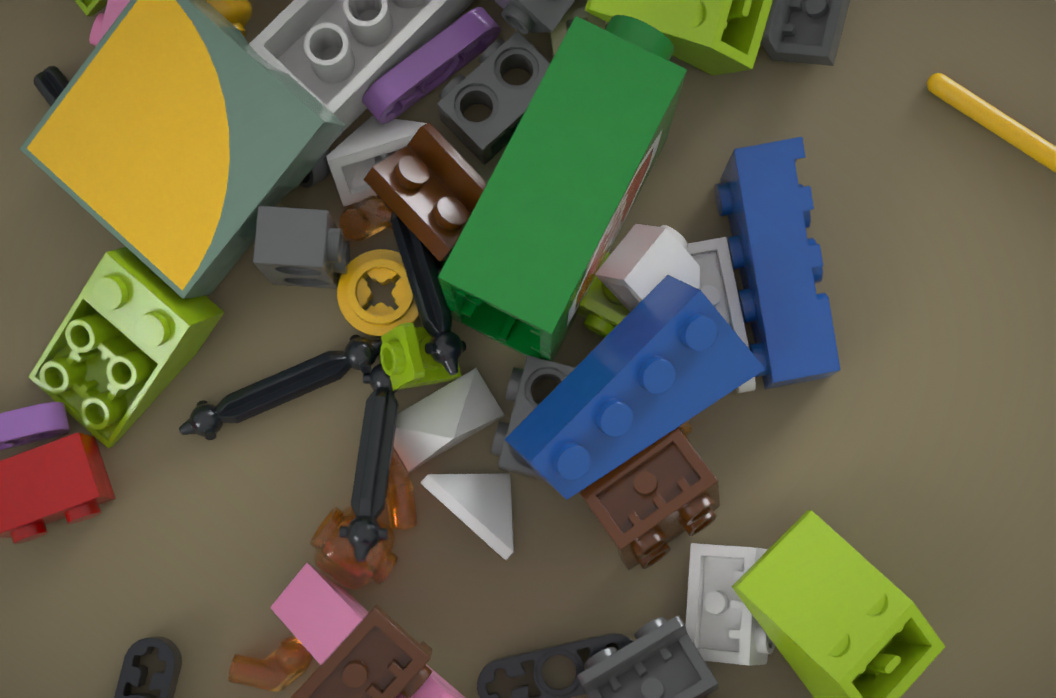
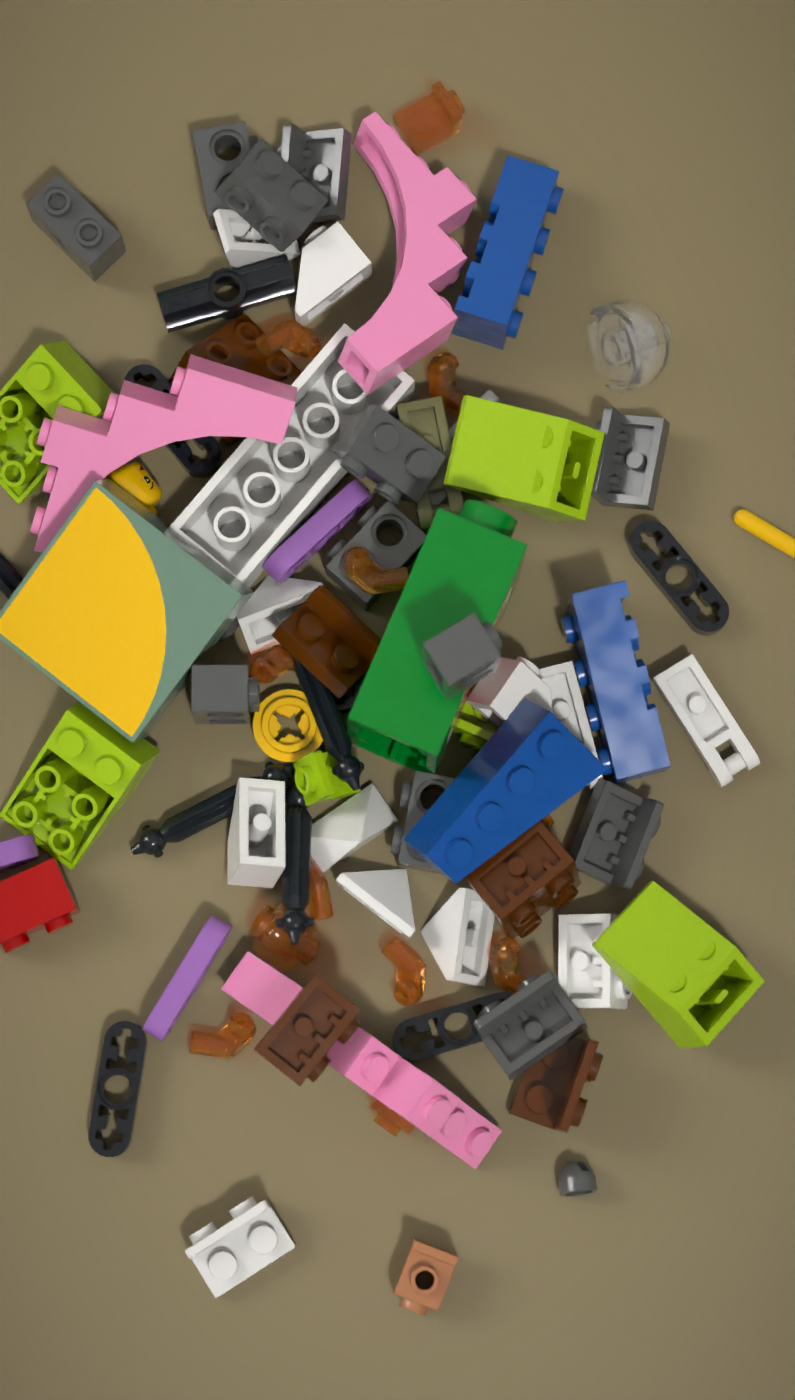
camera: 10 degrees left, 0 degrees up
(232, 590) = (187, 978): none -> medium lavender beam
(330, 419) = (257, 833): none -> white slope
(485, 113) = (370, 576): none -> clear orange arm
(505, 601) = (410, 972): none -> clear orange arm
(570, 564) = (461, 937): none -> white slope
(592, 198) = (462, 655): none -> dark grey brick
(622, 602) = (505, 965): none -> clear orange arm
(767, 450) = (615, 835): none -> dark grey bracket
(849, 107) = (649, 558): none -> black beam
(883, 318) = (705, 719): none -> white plate

